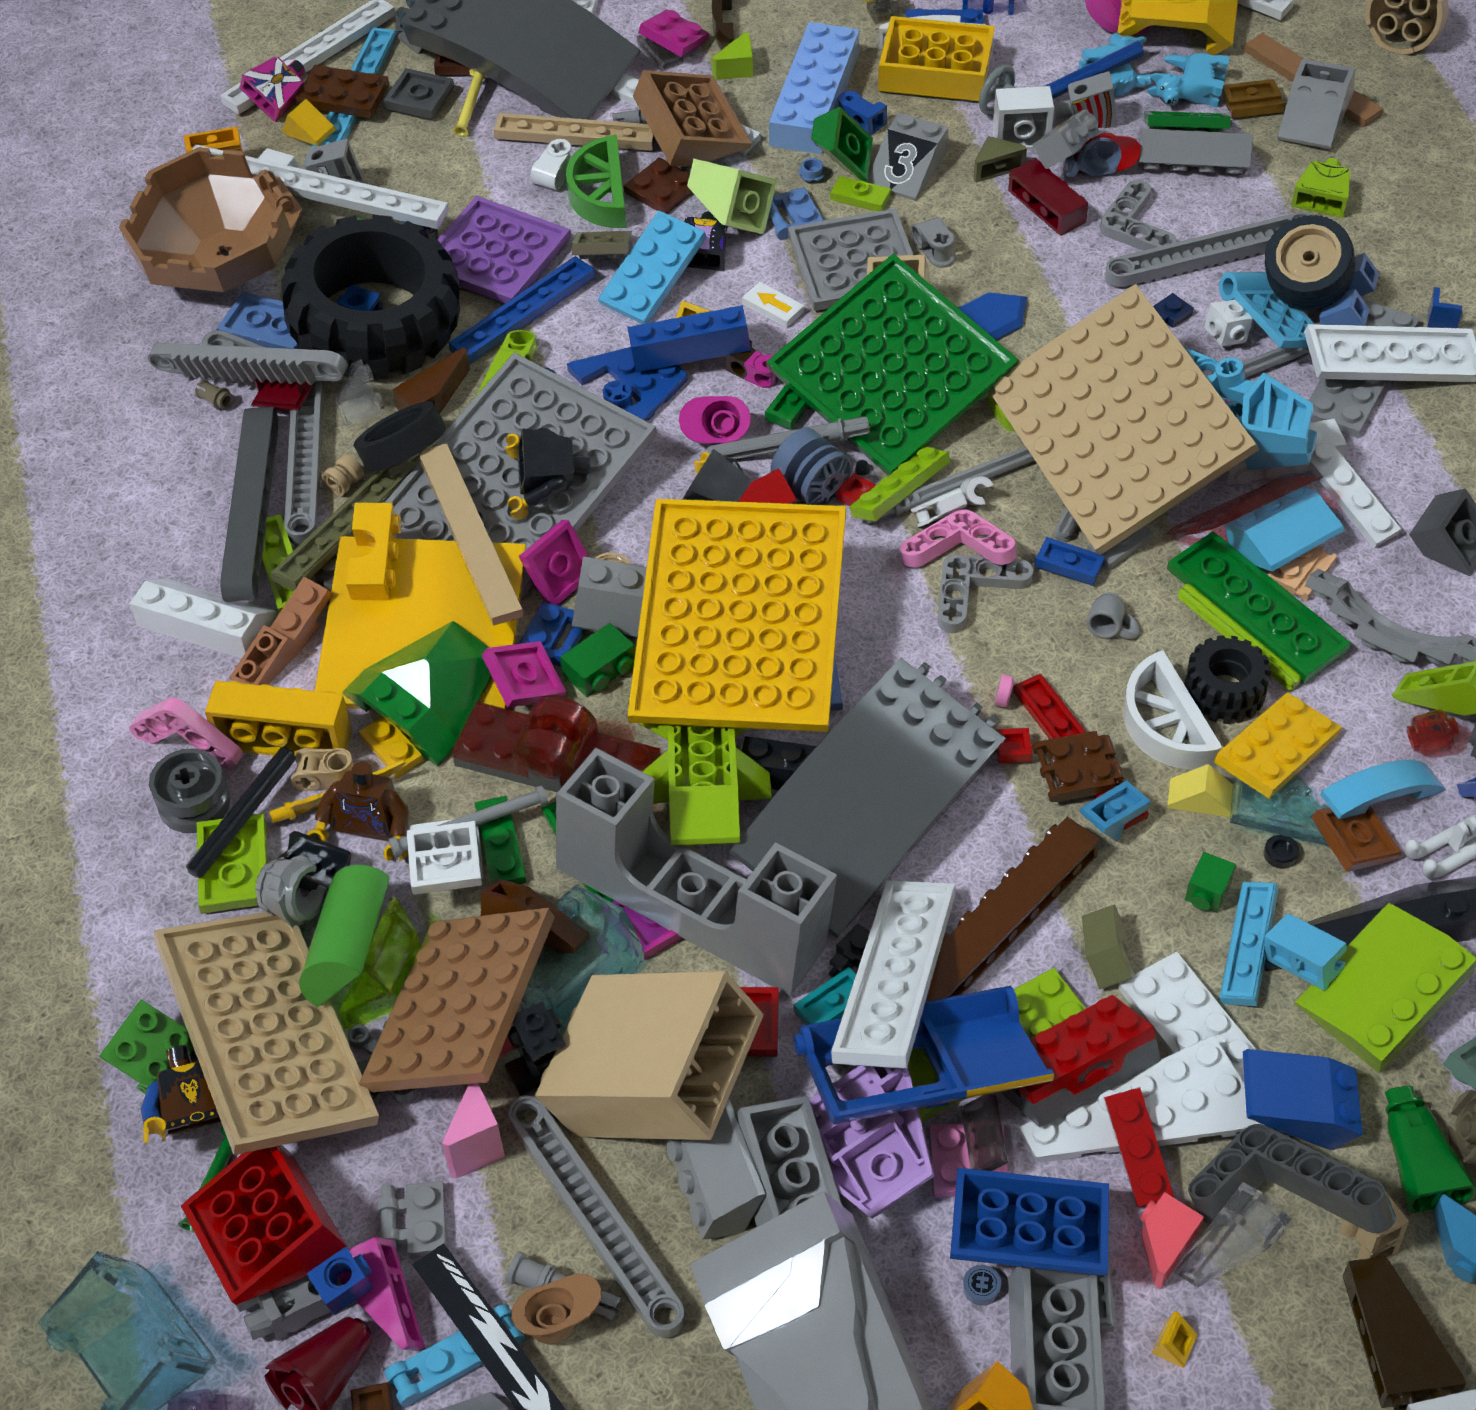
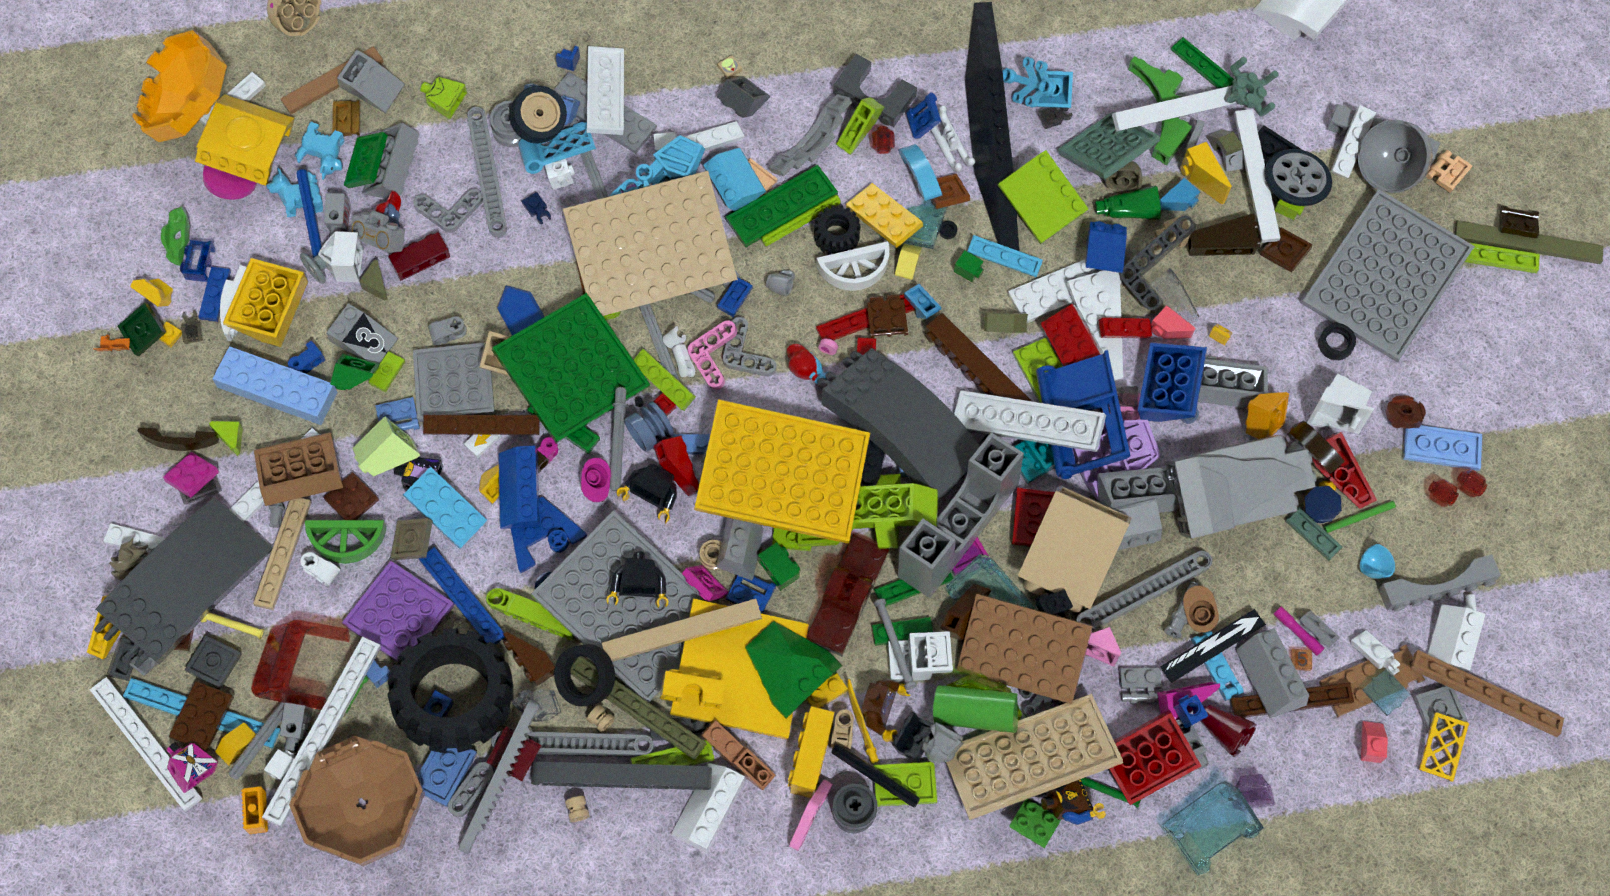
camera: 90 degrees left, 15 degrees up
(206, 465) = (577, 809): none -> tan wheel
(219, 397) = (508, 807): dark tan pin -> none
(300, 136) = (257, 742): none -> light grey axle
(417, 141) = (280, 658): none -> clear red windscreen
(523, 673) = (790, 607): dark pink plate -> none
(786, 283) = (481, 425): none -> reddish brown plate
(812, 170) = (355, 395): medium blue plate -> none
(956, 657) = (804, 364): none -> red hair
(1244, 504) = (725, 189): clear red piece -> none
(1305, 951) = (1020, 228): medium azure hinge -> none

